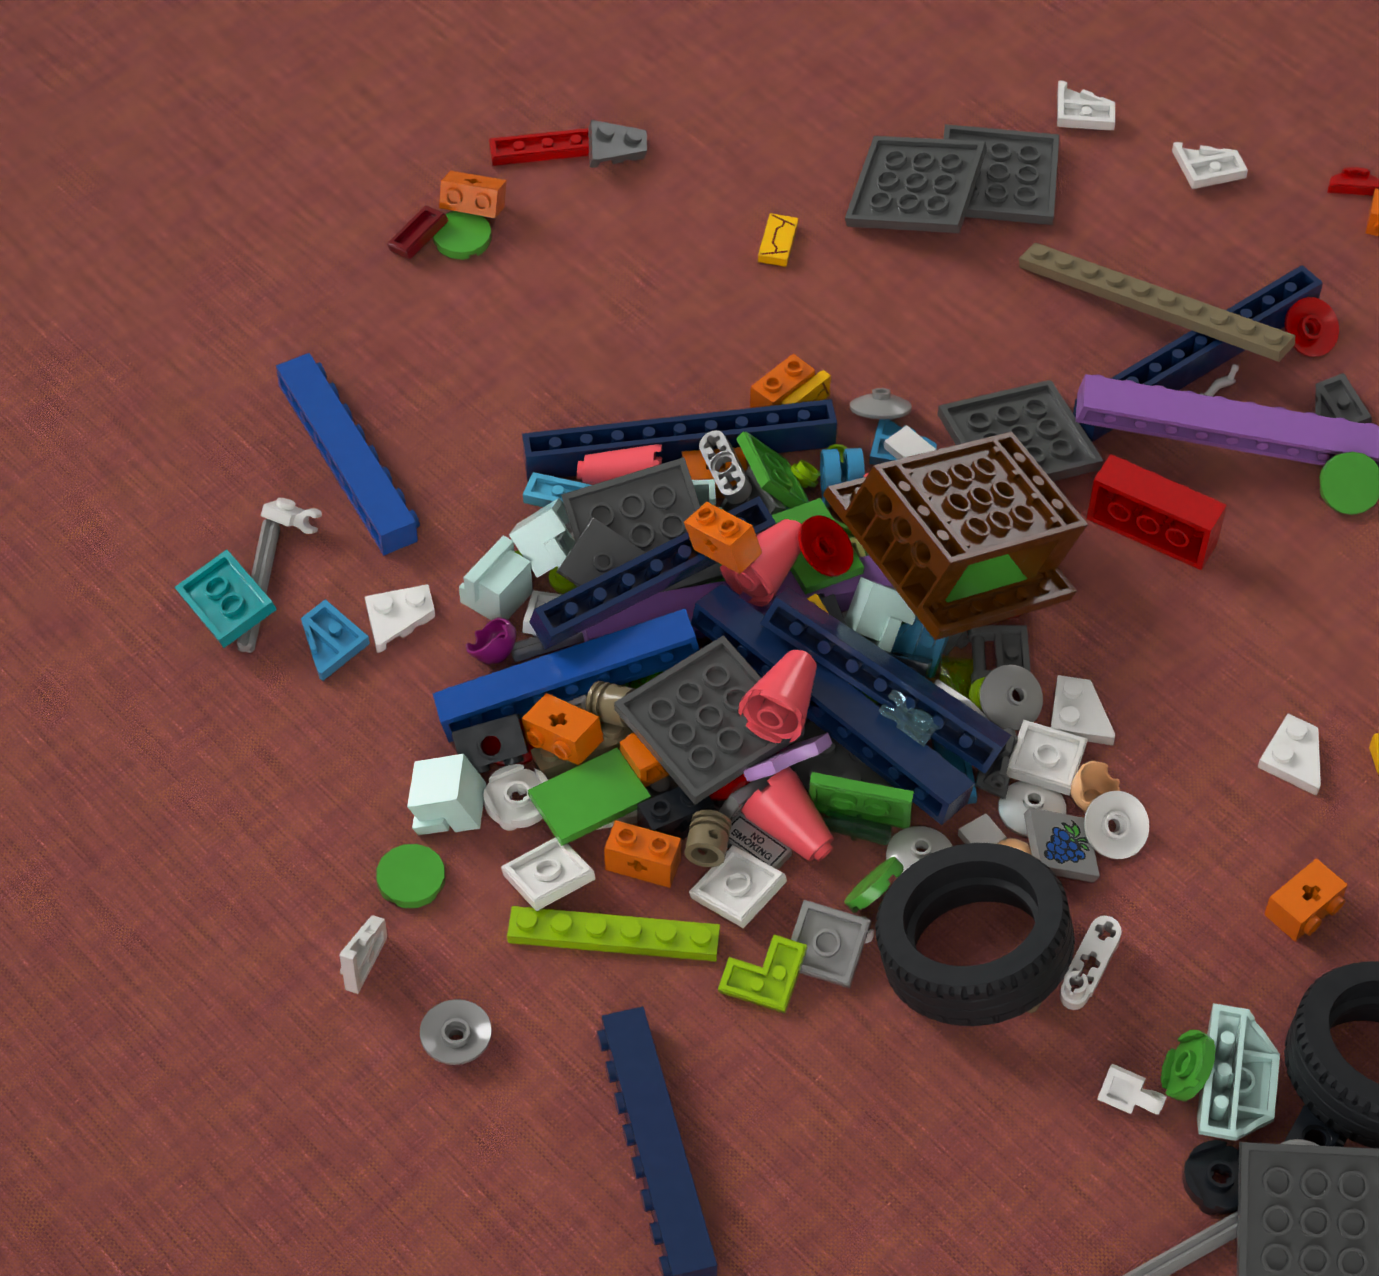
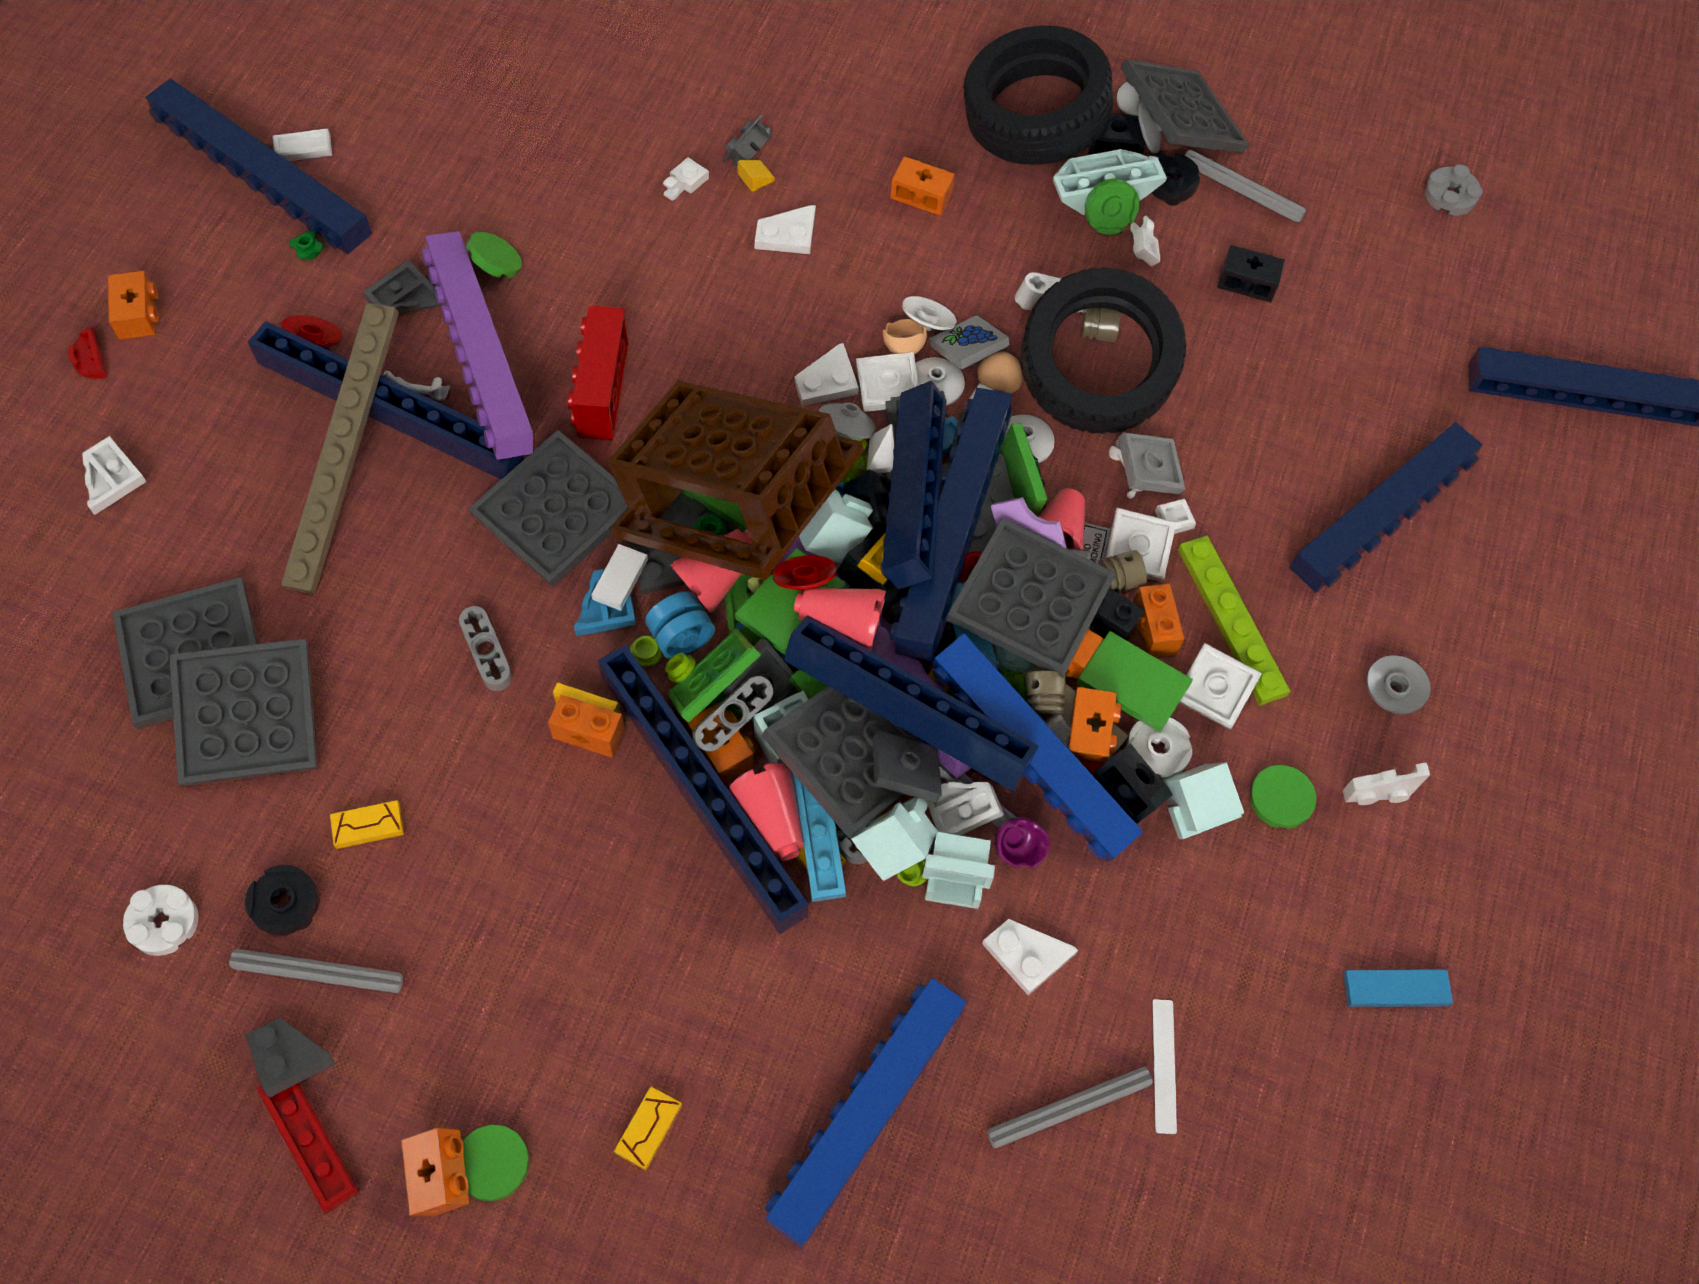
camera: 120 degrees left, 10 degrees up
(186, 870) = (1397, 988): none -> dark azure tile
(225, 598) = (1116, 1119): teal plate -> none
(246, 669) = (1164, 1067): none -> white sticker
(287, 514) = (978, 1124): white plate -> none
(331, 638) = (1093, 997): dark azure wing -> none
(417, 232) = (514, 1210): dark red tile -> none
(426, 326) = (648, 1128): none -> yellow tile
(671, 181) = (316, 970): none -> light grey axle
(723, 537) = (874, 626): orange brick -> none
(747, 187) = (293, 916): none -> black plate
(754, 943) = (1177, 512): none -> white tile
(764, 97) = (146, 905): none -> white plate
(766, 985) = (1207, 489): lime tile -> none
(781, 698) = (997, 527): coral cone -> none
(873, 884) = (1088, 443): bright green tile -> none
(880, 405) = (576, 637): light grey dish -> none
(912, 722) = (950, 441): clear light blue plate -> none
(922, 363) = (496, 655): none -> light grey beam
(1034, 1182) = (1251, 273): none -> black brick
(1083, 109) = (58, 609): white wing -> none

